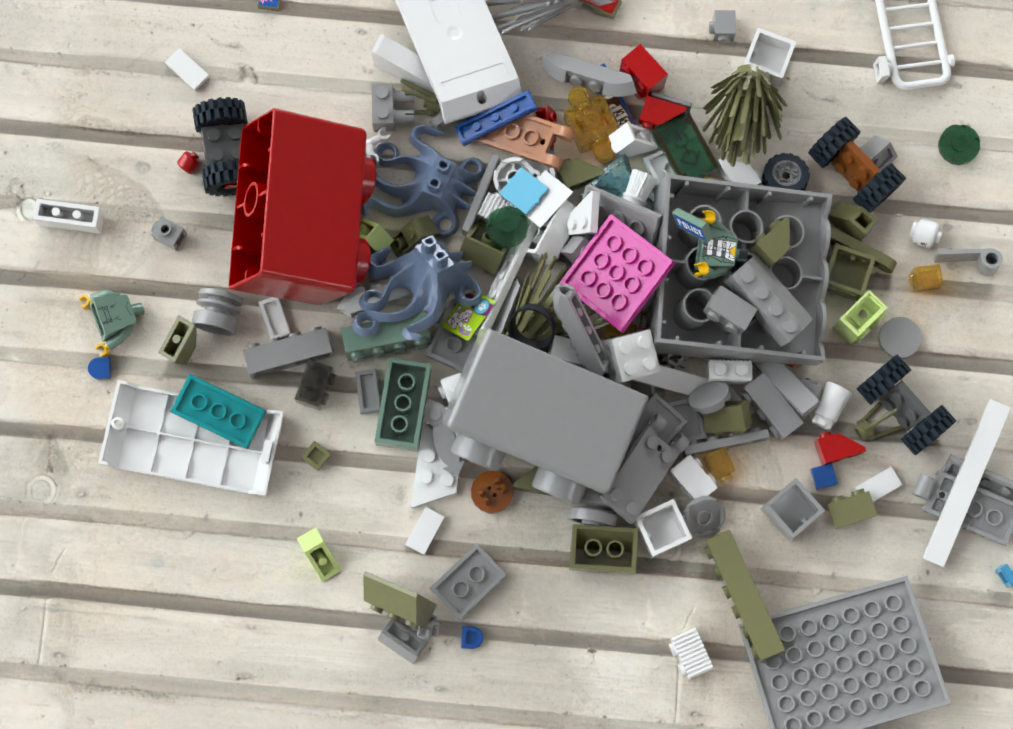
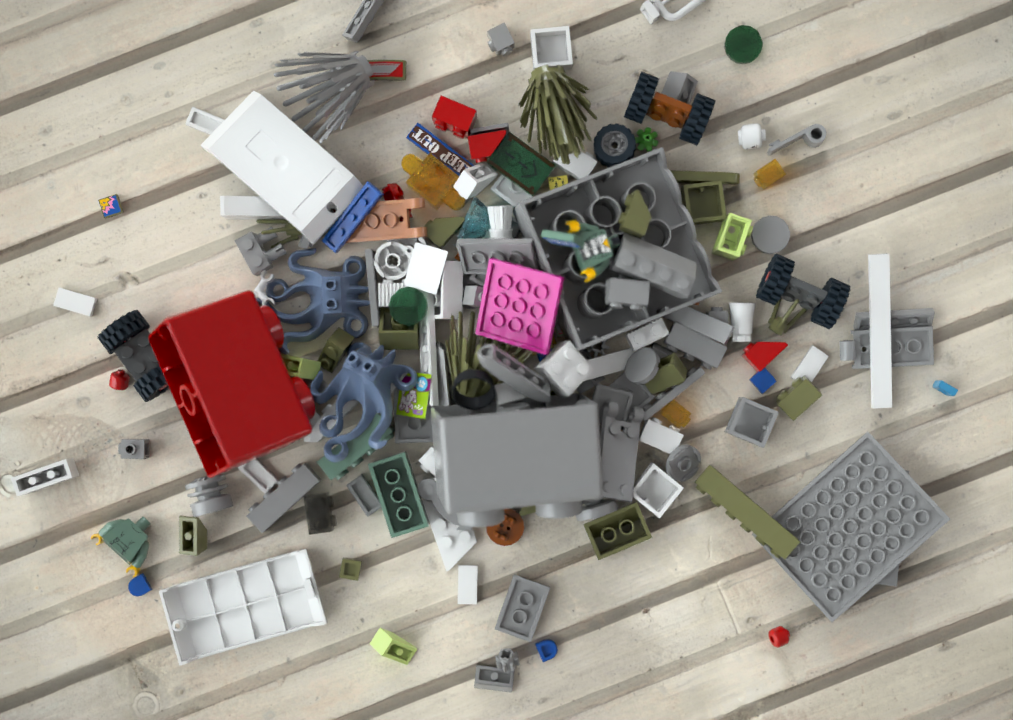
camera: 25 degrees left, 10 degrees up
(218, 411) = (253, 574): teal tile -> none
(397, 601) = (475, 655): olive slope -> none
(523, 191) = (406, 269): medium azure piece -> none
(584, 217) = (468, 268): white wing -> none
(588, 75) = (417, 141): light grey brick -> none
(691, 654) = (726, 576): white brick -> none
(820, 185) = (646, 143): none -> bright green plant
(853, 220) = (687, 155): olive slope -> none

